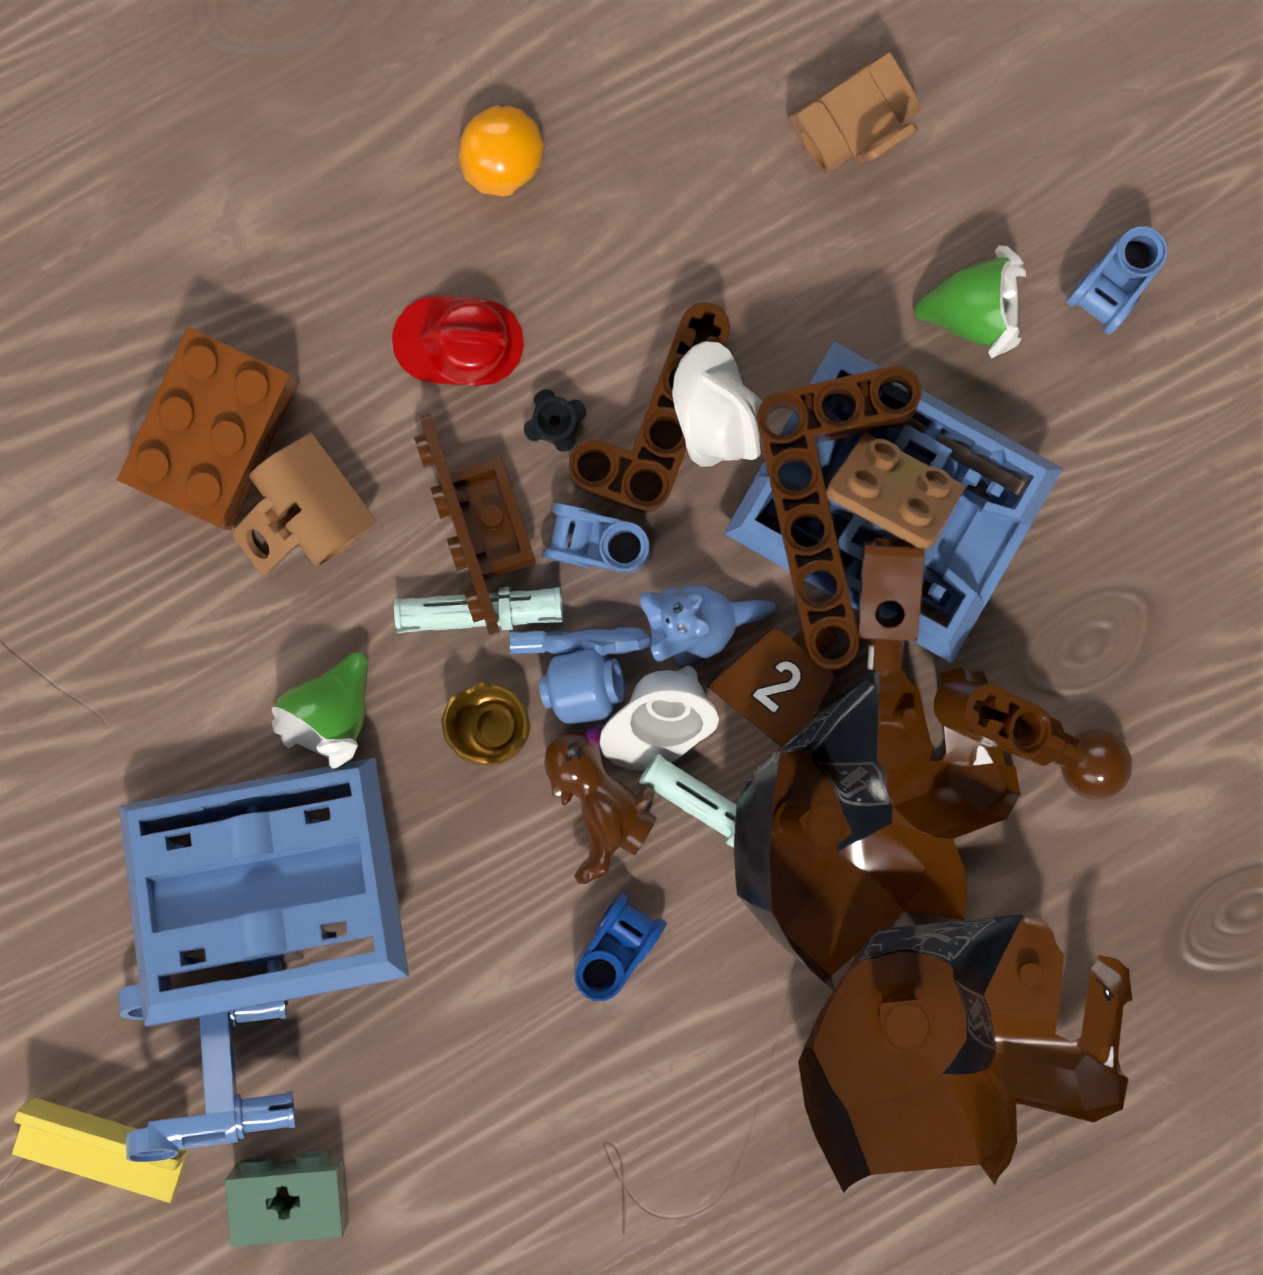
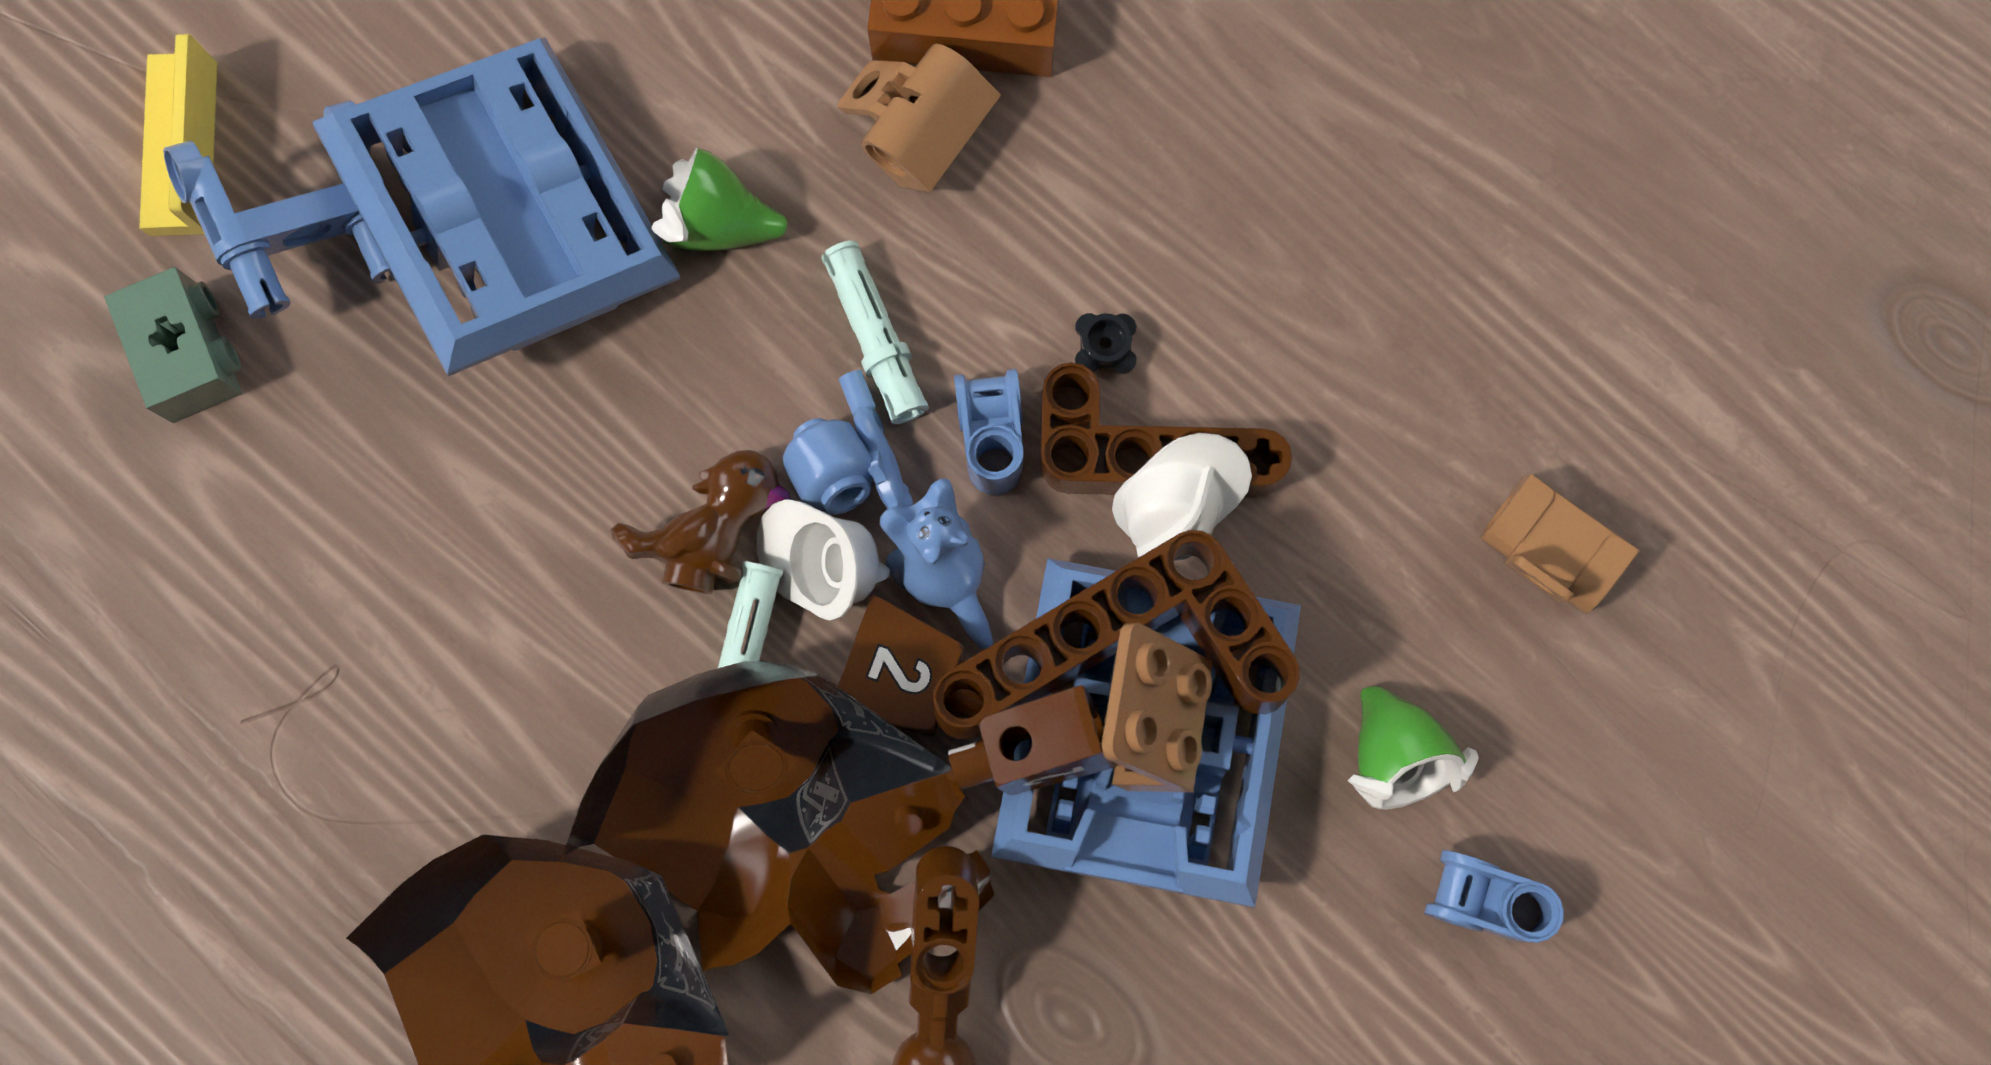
camera: 75 degrees right, 10 degrees down
(457, 341) = (1153, 219): red piece -> none
(485, 519) = (969, 299): reddish brown bracket -> none
(486, 724) = (752, 376): pearl gold hair -> none
(500, 150) = (1369, 191): light orange hair -> none
(618, 946) = (563, 600): blue piece -> none

